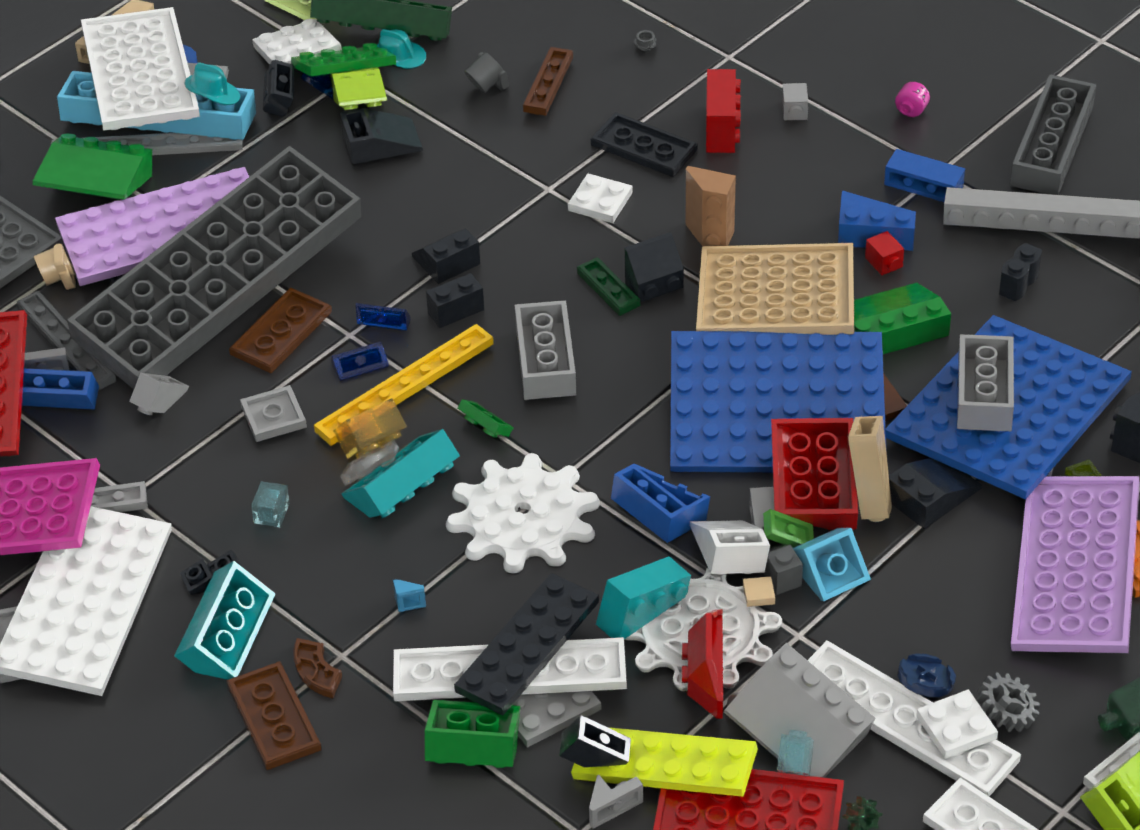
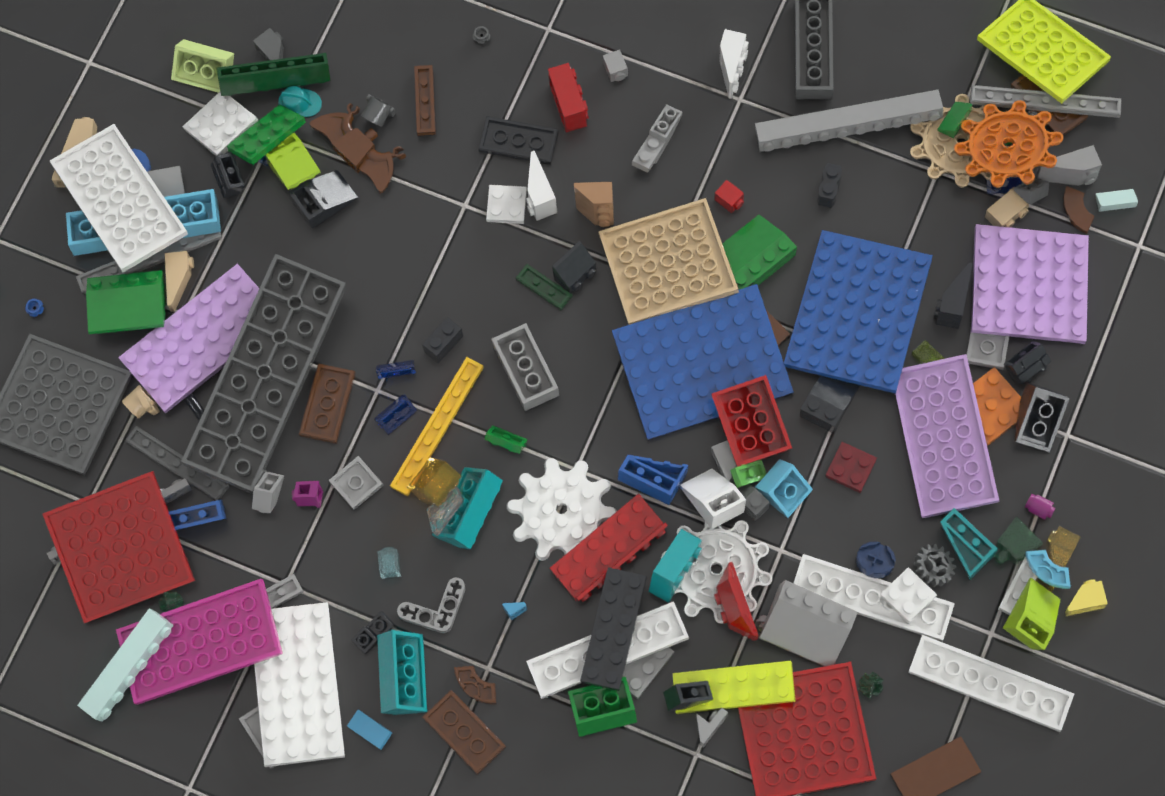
camera: 15 degrees left, 25 degrees up
(150, 673) = (369, 729): none -> dark azure slope
(169, 164) = (178, 273): none -> tan slope
(207, 406) = (307, 493): none -> magenta brick
(212, 84) = (184, 202): teal piece -> none
(304, 578) = (436, 616): none -> light grey beam
(446, 104) = (357, 147): none -> reddish brown torso
(449, 255) = (418, 295): black slope -> none
(579, 555) = (607, 547): none -> red bracket
(643, 187) = (540, 195): none -> white slope
(758, 591) = (746, 530): tan tile -> none
(795, 753) = (816, 656): clear light blue brick -> none
(820, 178) = (657, 139): none -> light grey slope
(867, 217) = (710, 171): blue wedge -> none
(870, 467) = (790, 411): tan slope -> none
(912, 99) = (700, 38): dark pink head -> none
(922, 175) = (733, 111): blue brick -> none
(933, 568) = (851, 467): none -> dark red plate
(947, 119) = (732, 55): none -> white slope
(985, 383) = (842, 309): light grey brick -> none
(1067, 688) = (968, 543): none -> teal wedge

